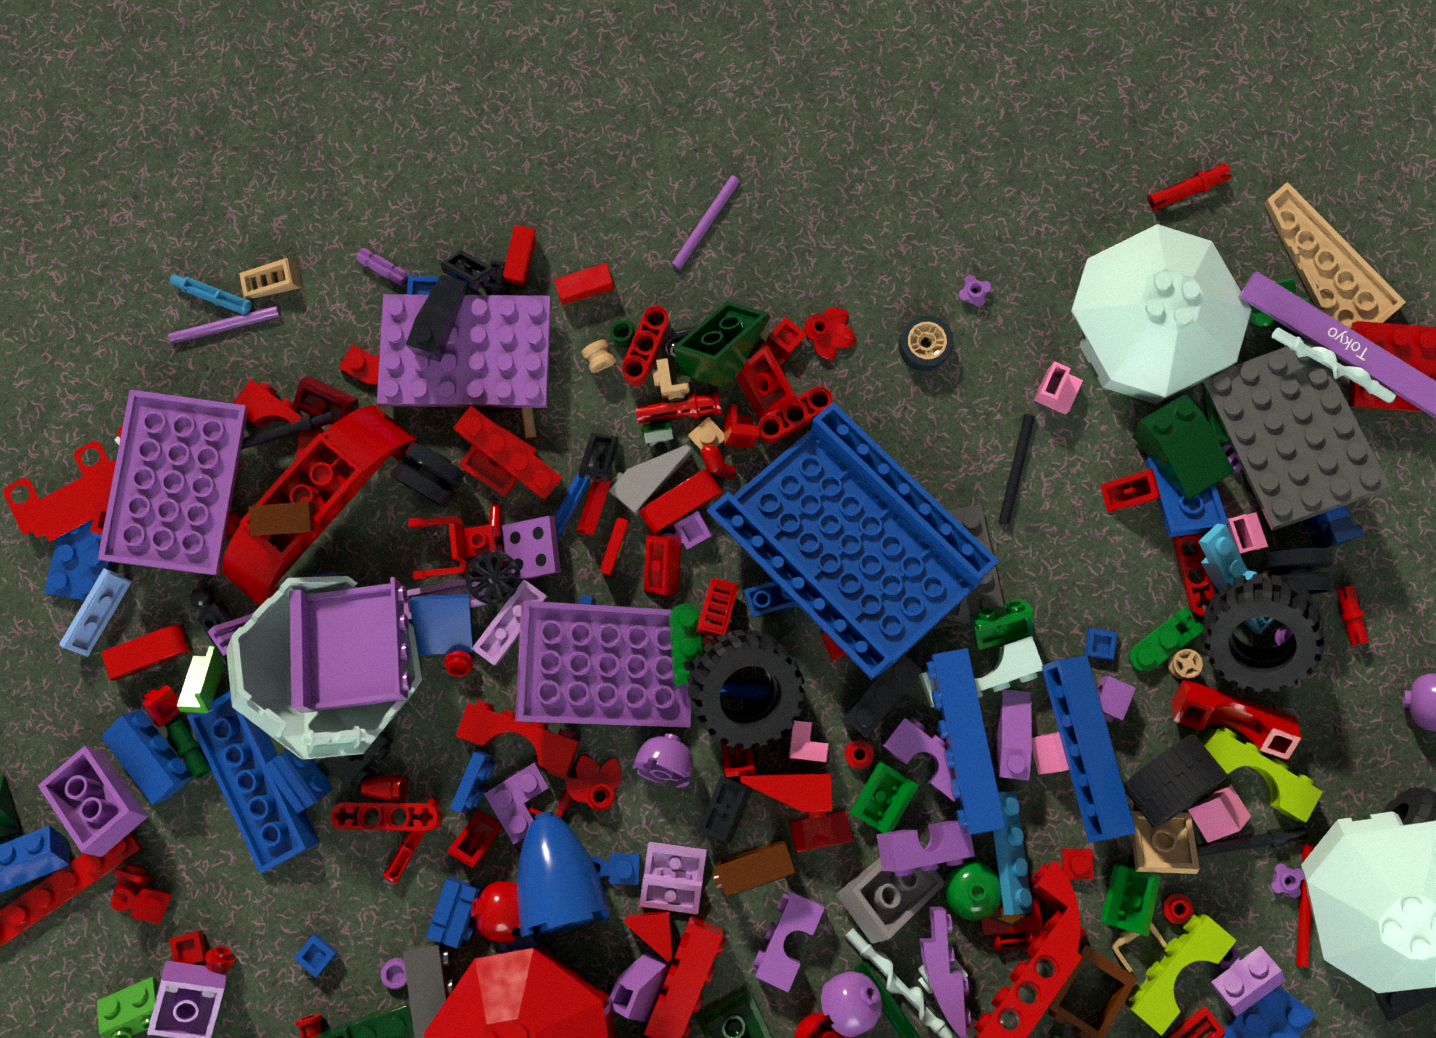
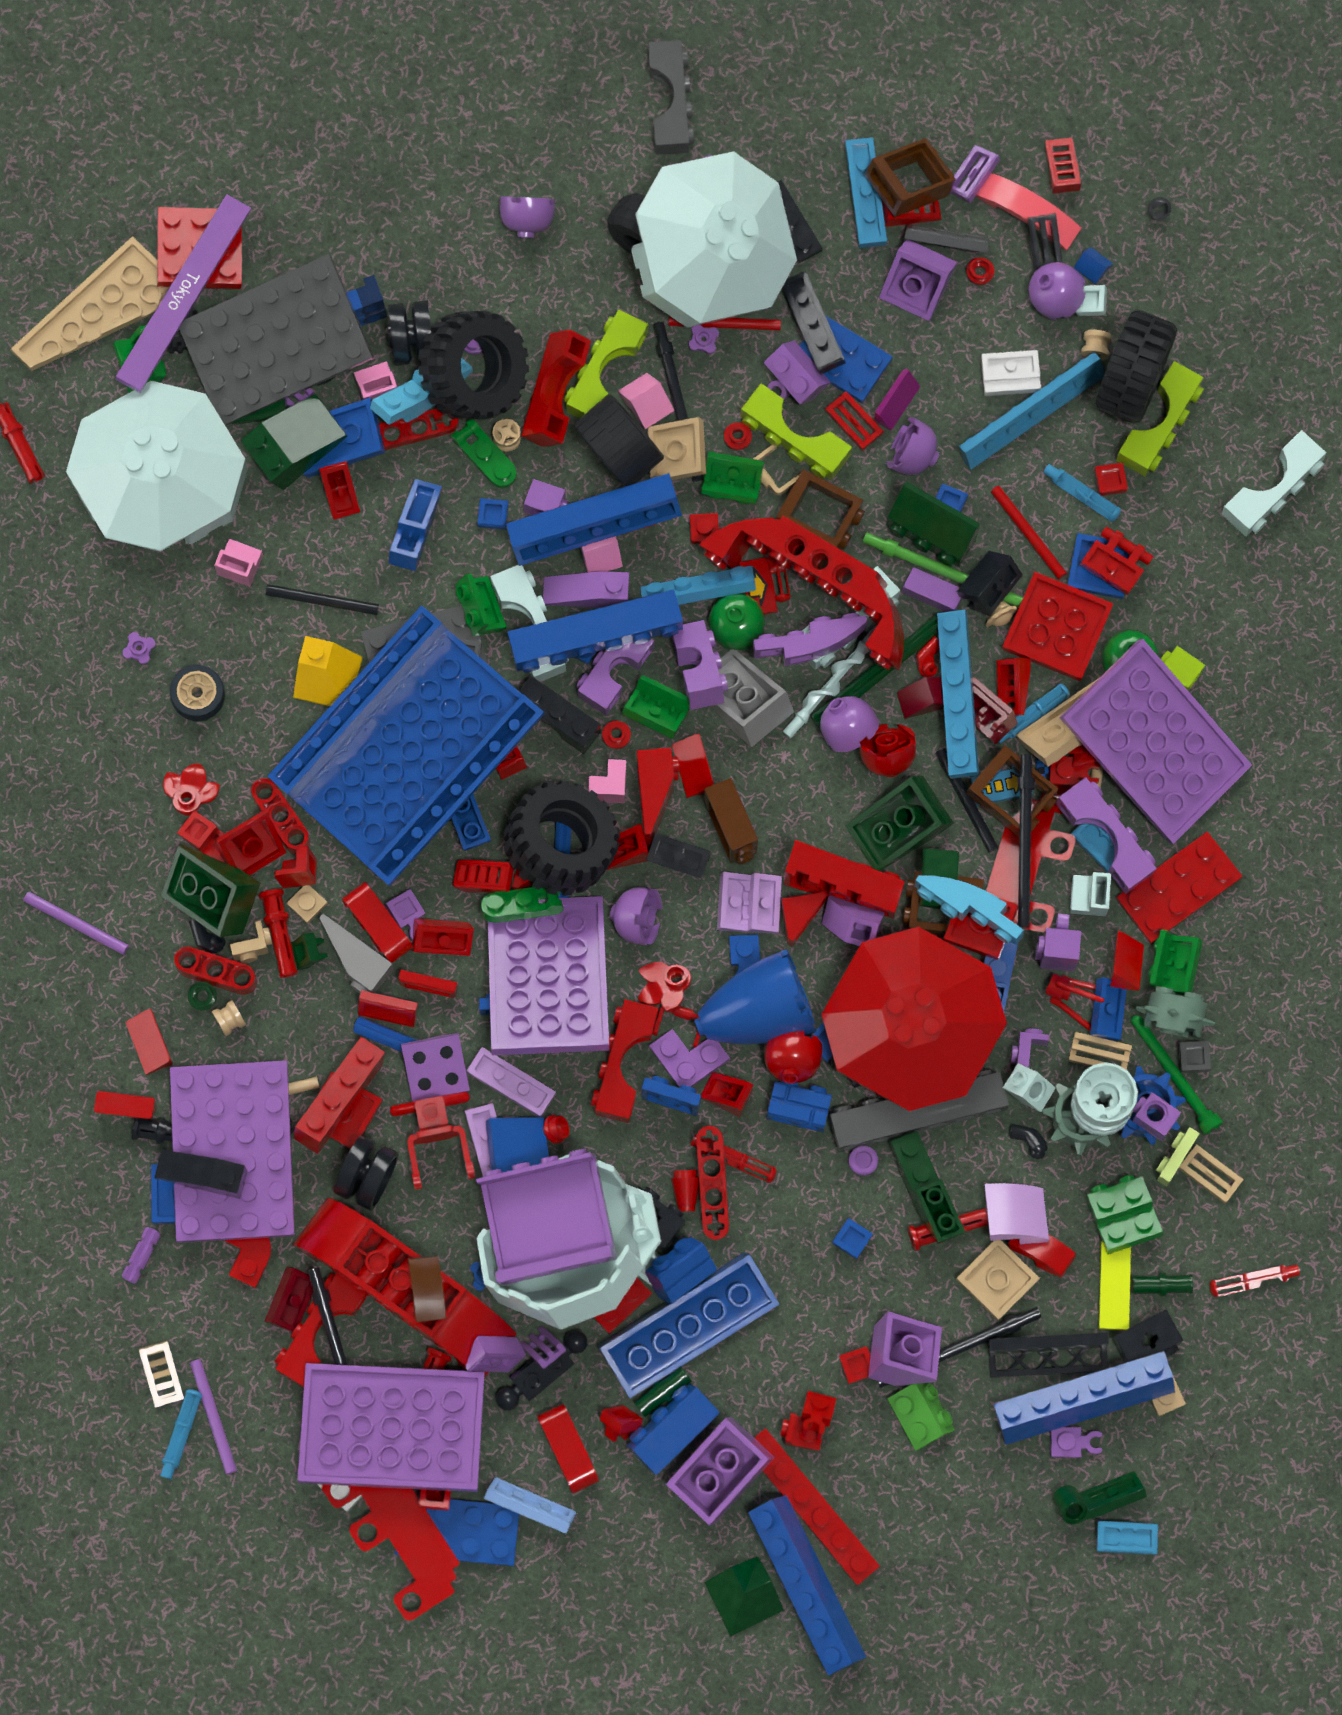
camera: 100 degrees left, 5 degrees down
(201, 682) = (594, 1382): panel -> none
(219, 959) = (864, 1332): red plate -> none
(238, 587) = (495, 1354): none -> medium lavender slope
(465, 272) = (146, 1161): black tile -> none
(492, 577) = (467, 1097): black wheel -> none
(595, 471) = (353, 1006): black tile -> none
(715, 463) = (335, 890): red arm -> none
(774, 963) = (818, 800): medium lavender arch -> none
(941, 466) = (324, 671): none -> yellow slope
(1091, 564) = (414, 525): none -> blue slope
(1304, 1004) = (813, 323): none -> tile
(1329, 359) = (201, 309): light aqua piece -> none
(1352, 615) = (448, 283): red pin -> none

